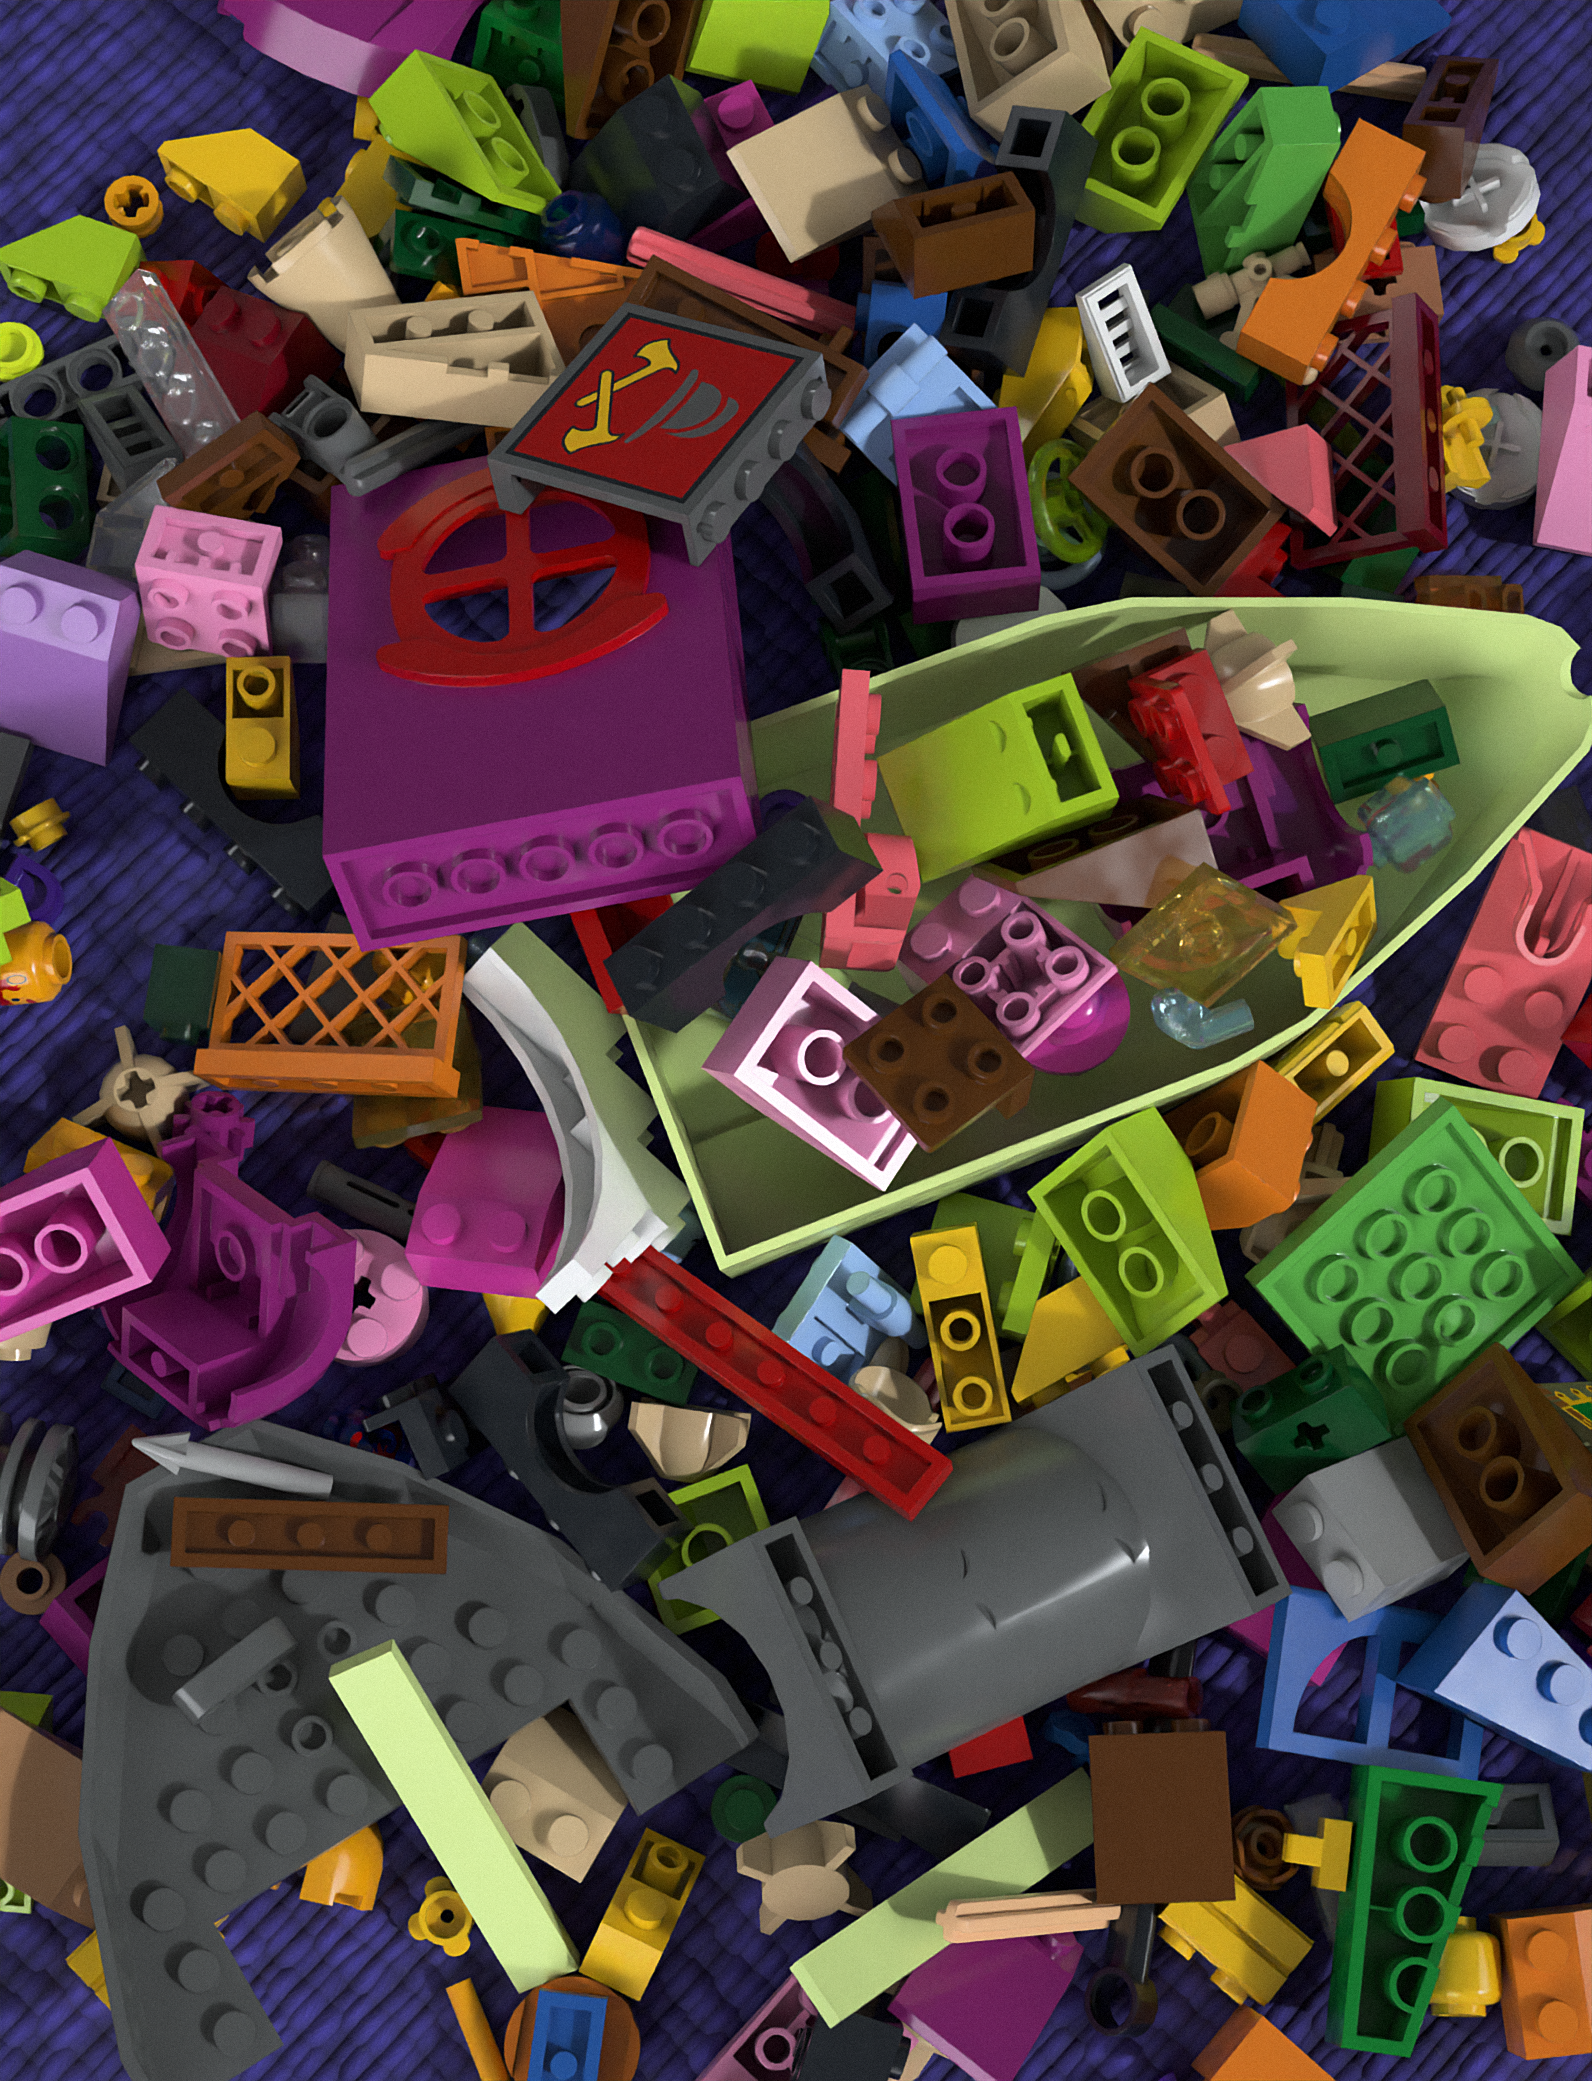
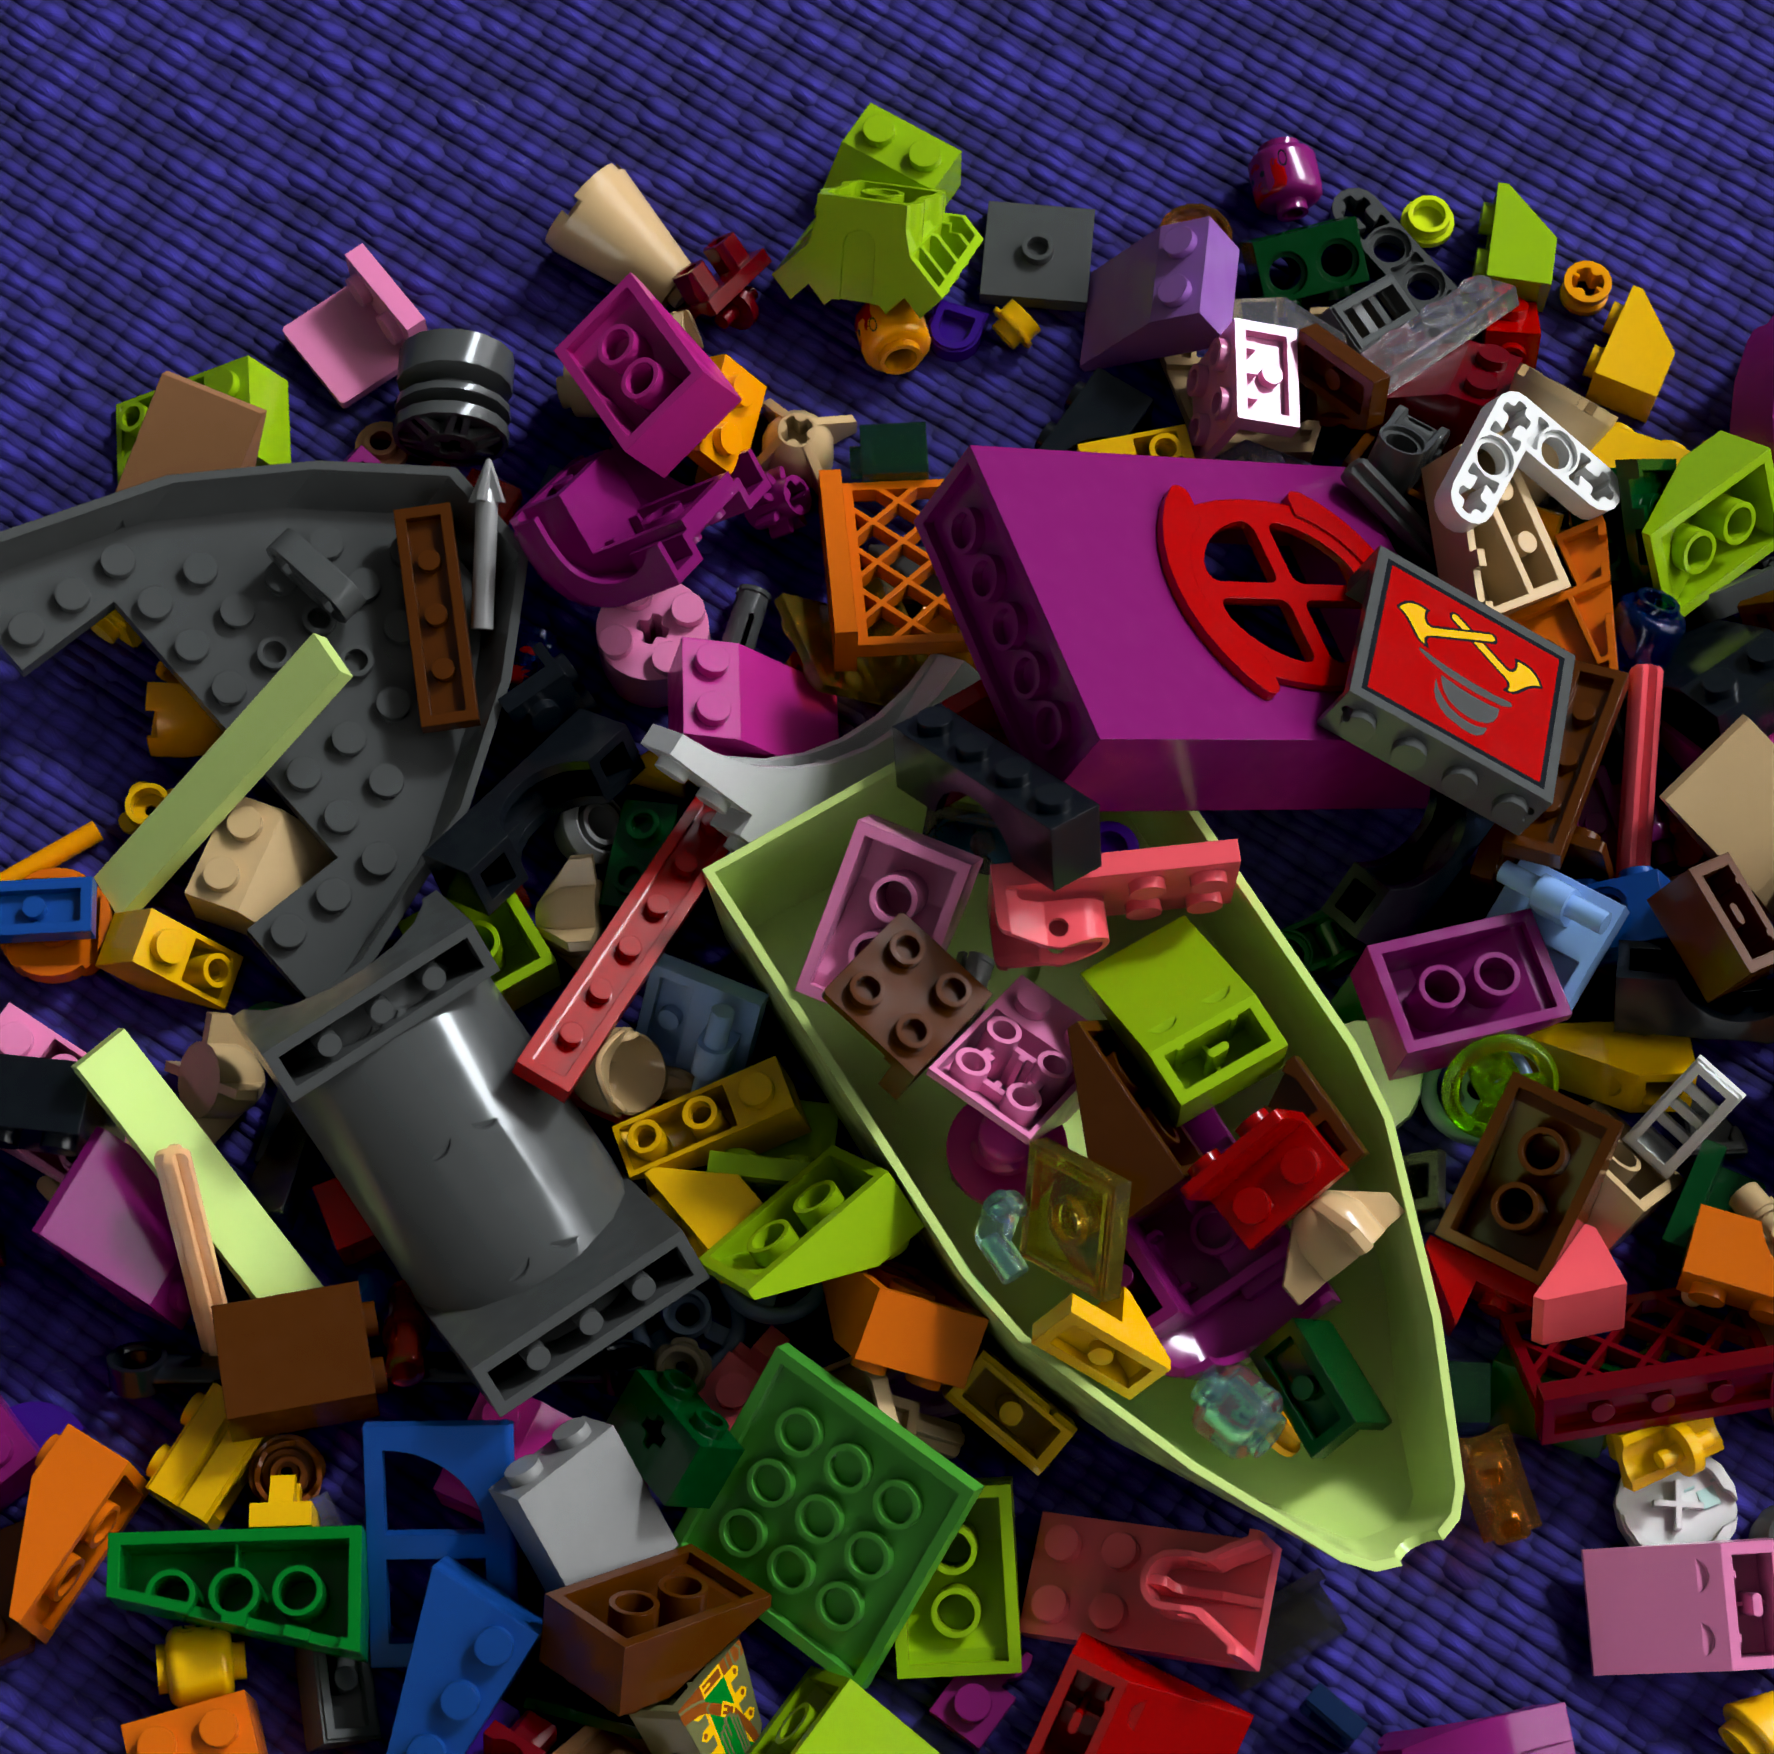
camera: 85 degrees right, 10 degrees down
(361, 299) = (1587, 495): none -> white beam

